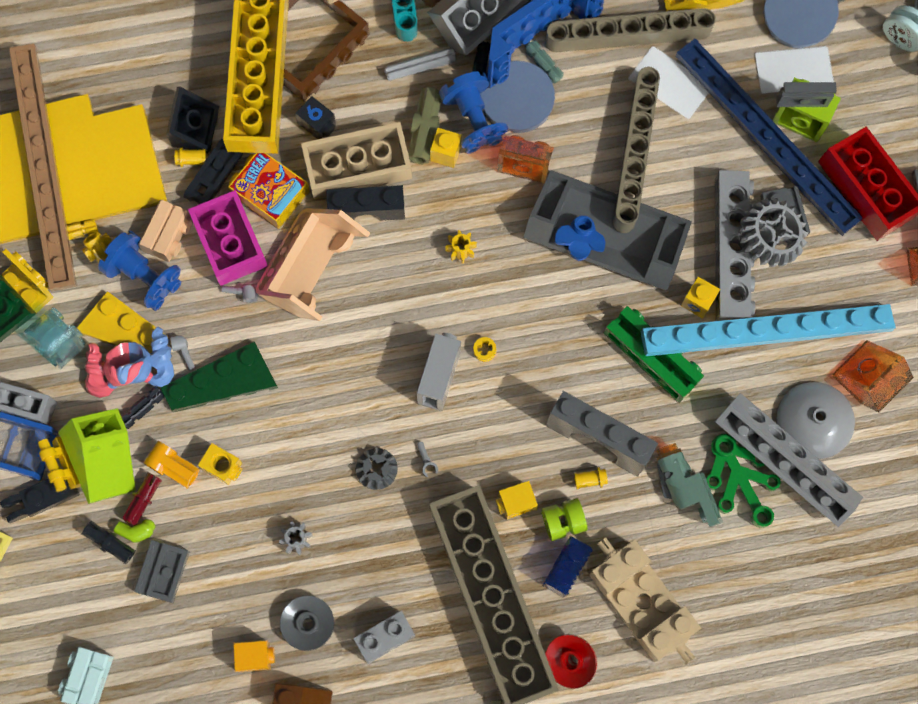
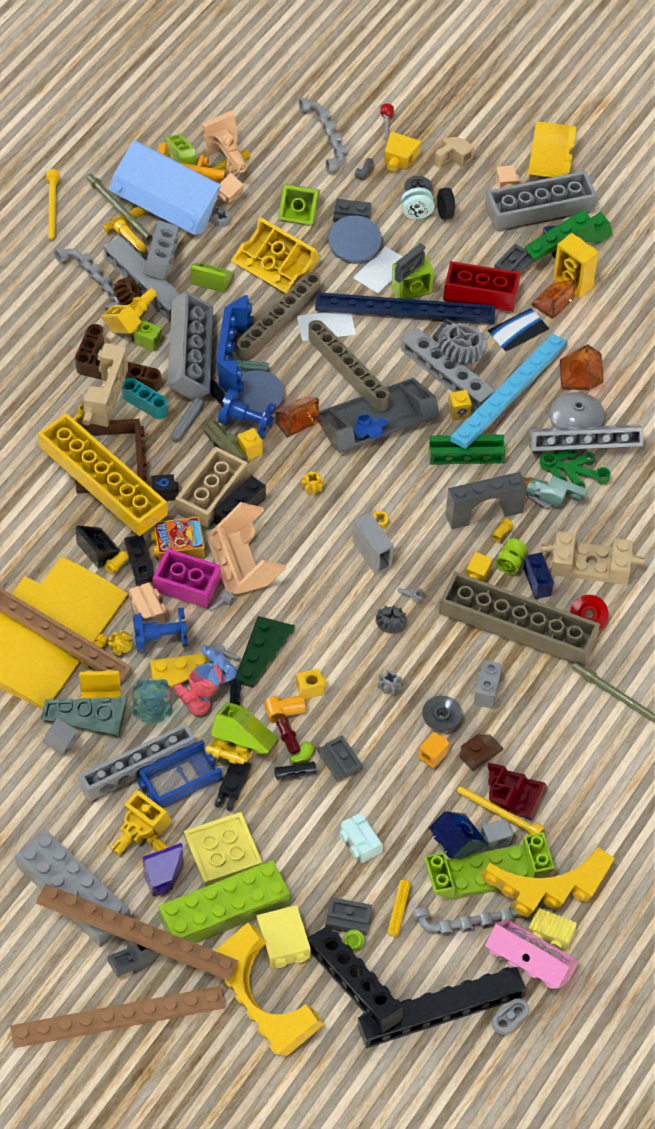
camera: 45 degrees left, 20 degrees down
(861, 265) = (518, 329): none -> sticker

